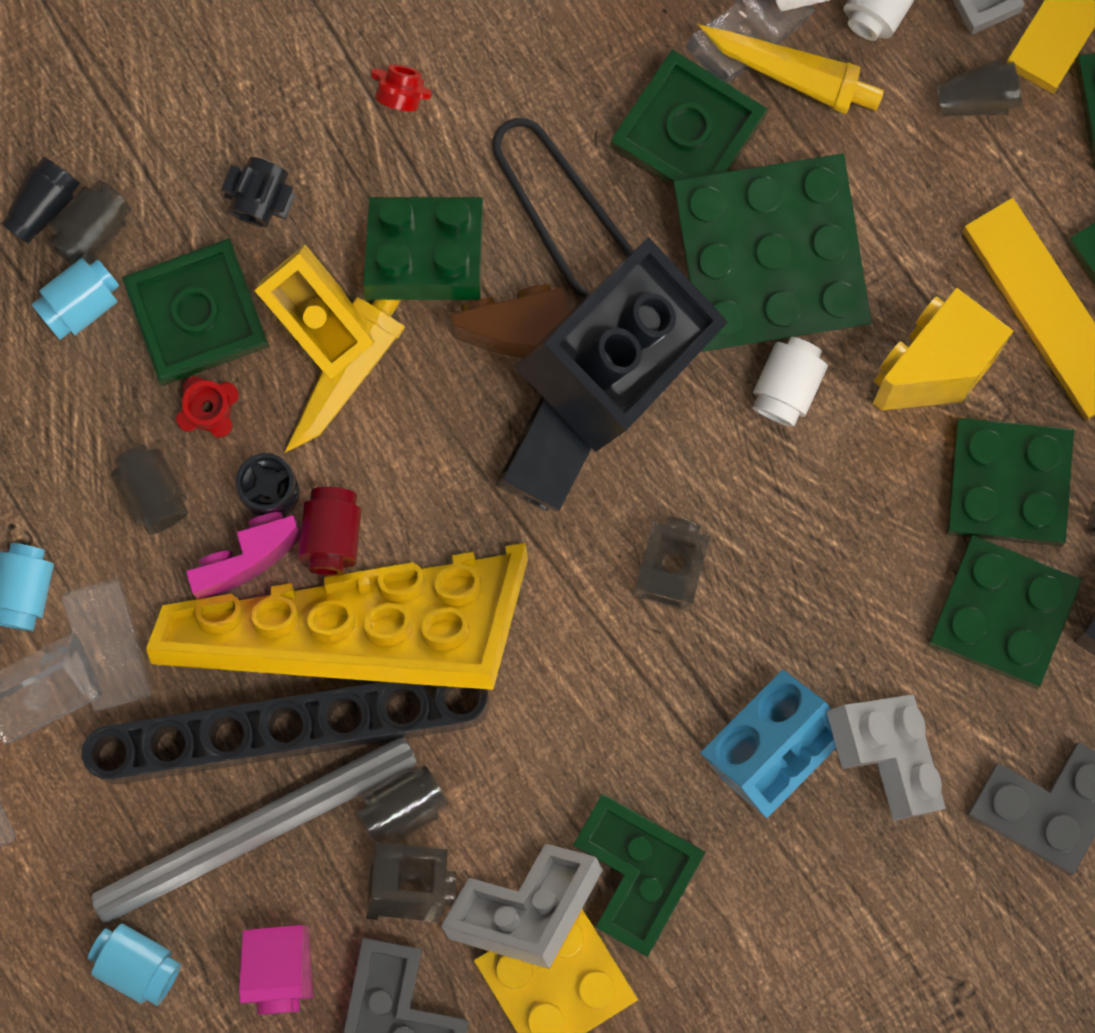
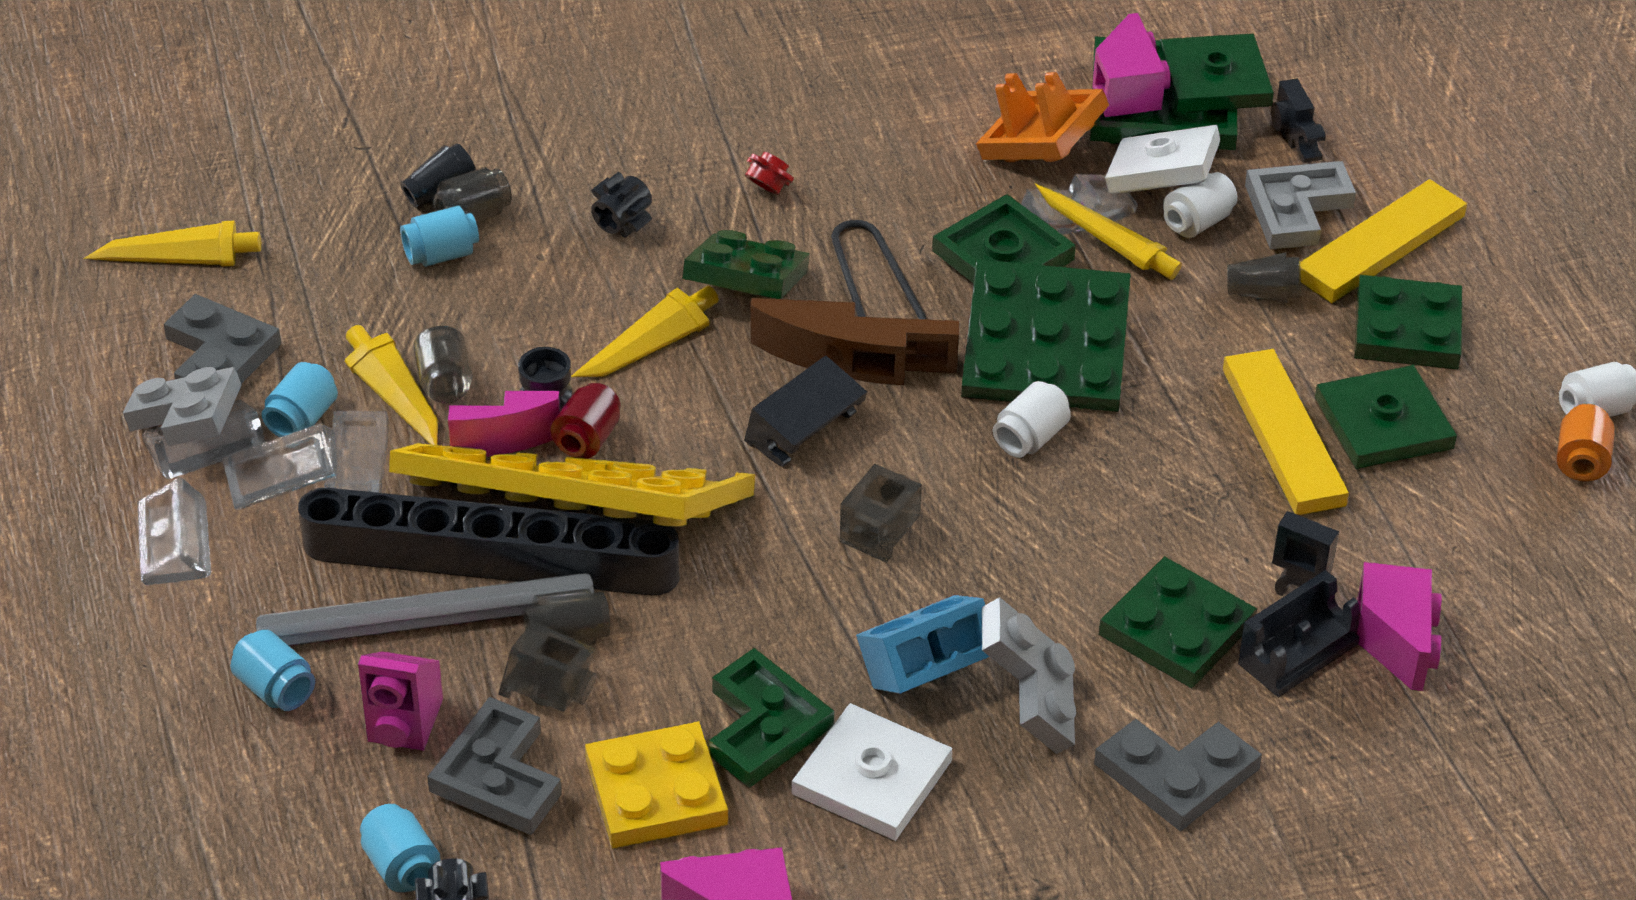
camera: 10 degrees right, 35 degrees down
(90, 508) = (386, 373): none -> yellow bar
(195, 312) = (535, 269): dark green plate -> none
(199, 392) = (517, 328): red plate -> none
(315, 311) = (634, 271): yellow slope -> none
(528, 921) = (652, 711): light grey plate -> none
(622, 345) = (886, 333): black slope -> none
(759, 900) = (872, 771): none -> white plate
(947, 358) = (1172, 417): yellow slope -> none
(1010, 482) = (1213, 534): dark green plate -> none

